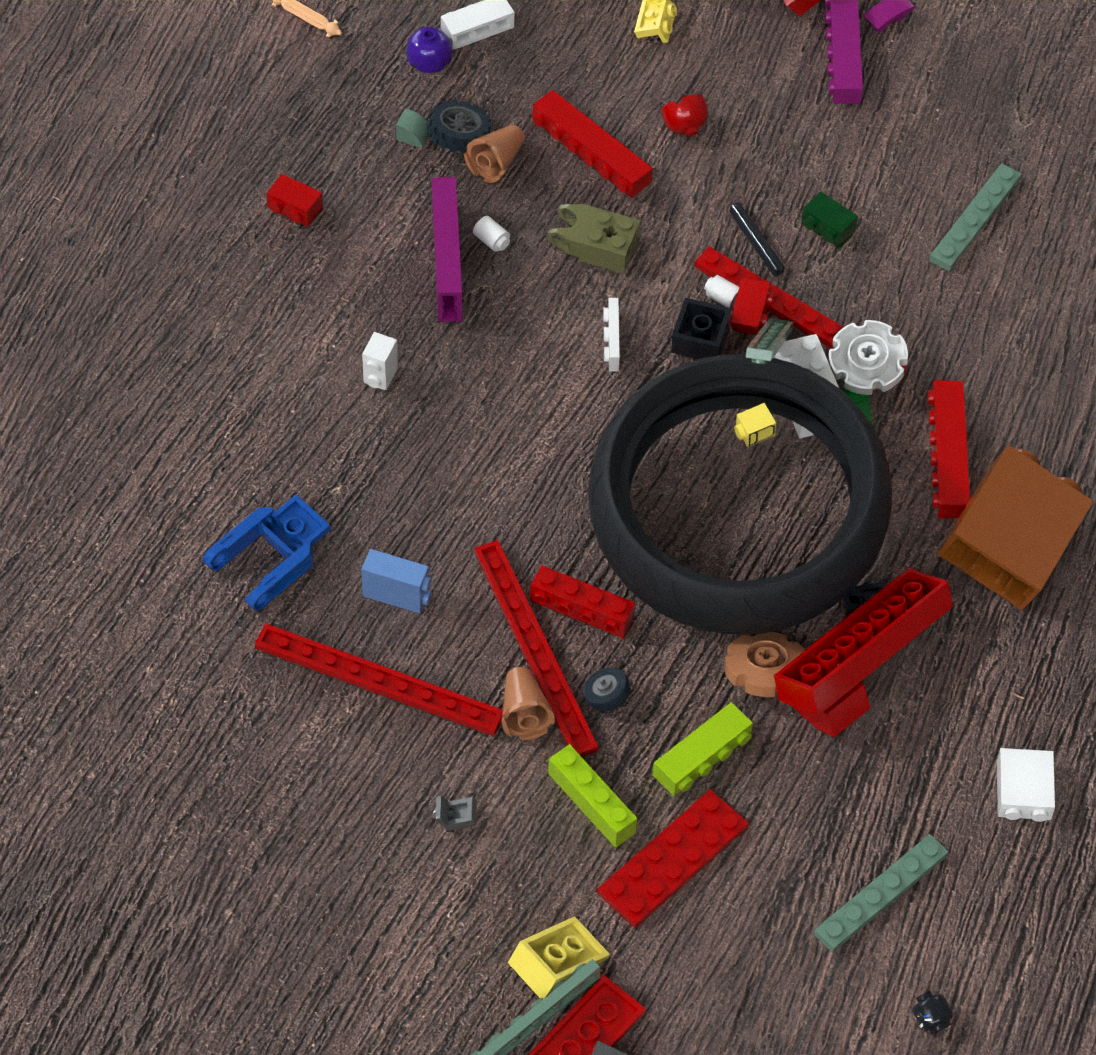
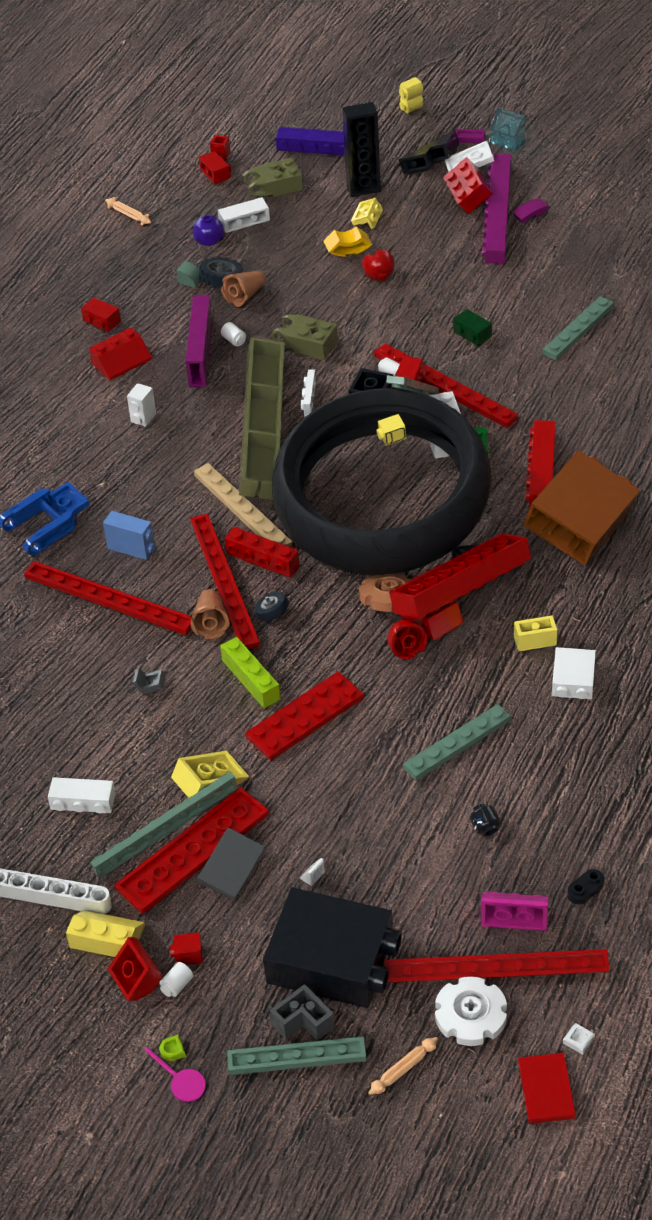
camera: 10 degrees right, 10 degrees down
(333, 270) = (119, 354): none -> red slope
(390, 994) = (81, 795): none -> white brick
(541, 524) = (240, 505): none -> tan plate
(554, 381) = (261, 417): none -> olive piece
(592, 144) = (312, 283): red brick -> none
(635, 71) = (347, 242): none -> yellow brick
(703, 749) = (335, 645): lime brick -> none
(756, 239) = (420, 340): black axle -> none
(798, 737) = (406, 639): none -> red cylinder
(885, 355) = (488, 405): white piece -> none
(970, 725) = (535, 633): none -> light yellow brick

